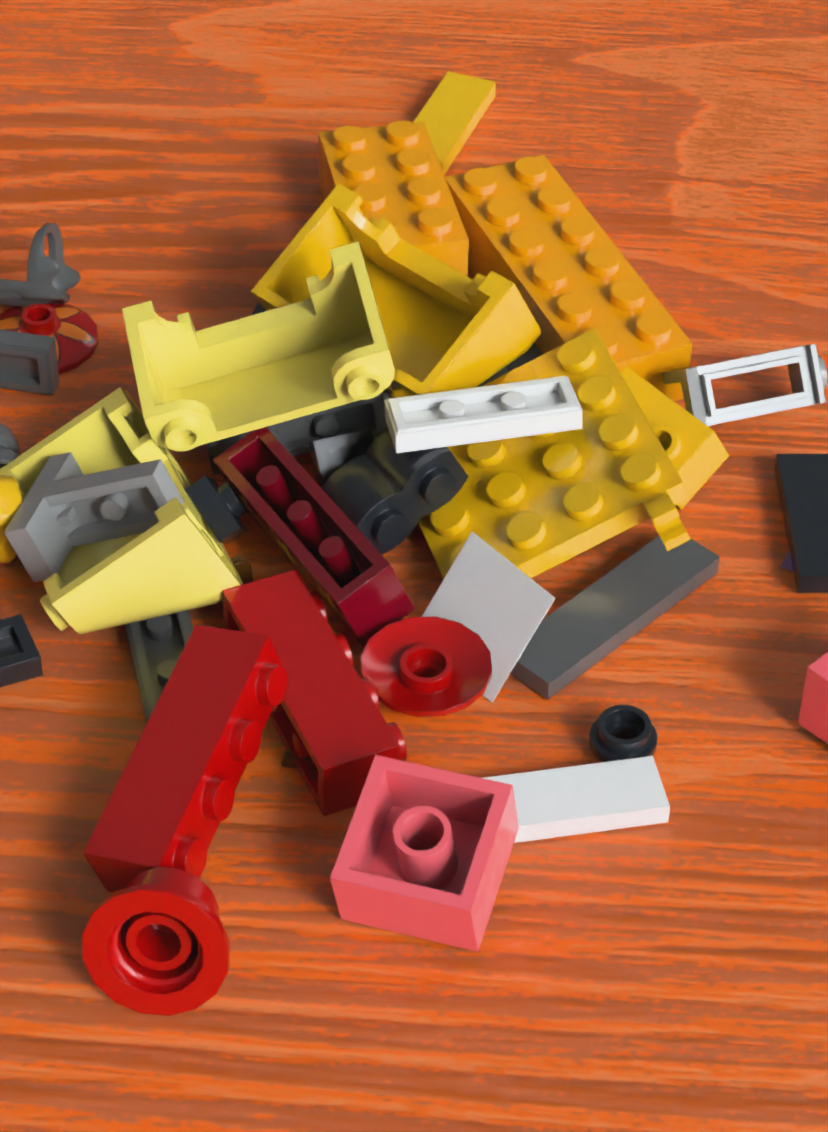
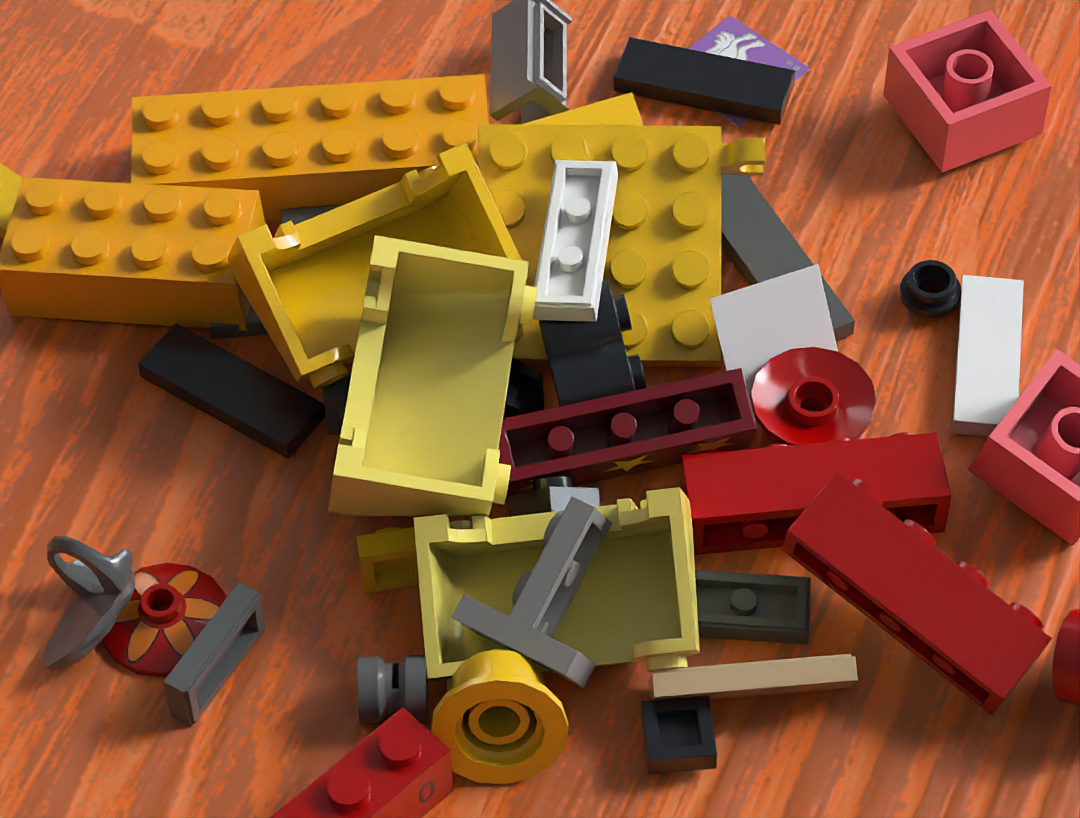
camera: 70 degrees left, 10 degrees up
(72, 688) = (755, 678): none -> tan tile

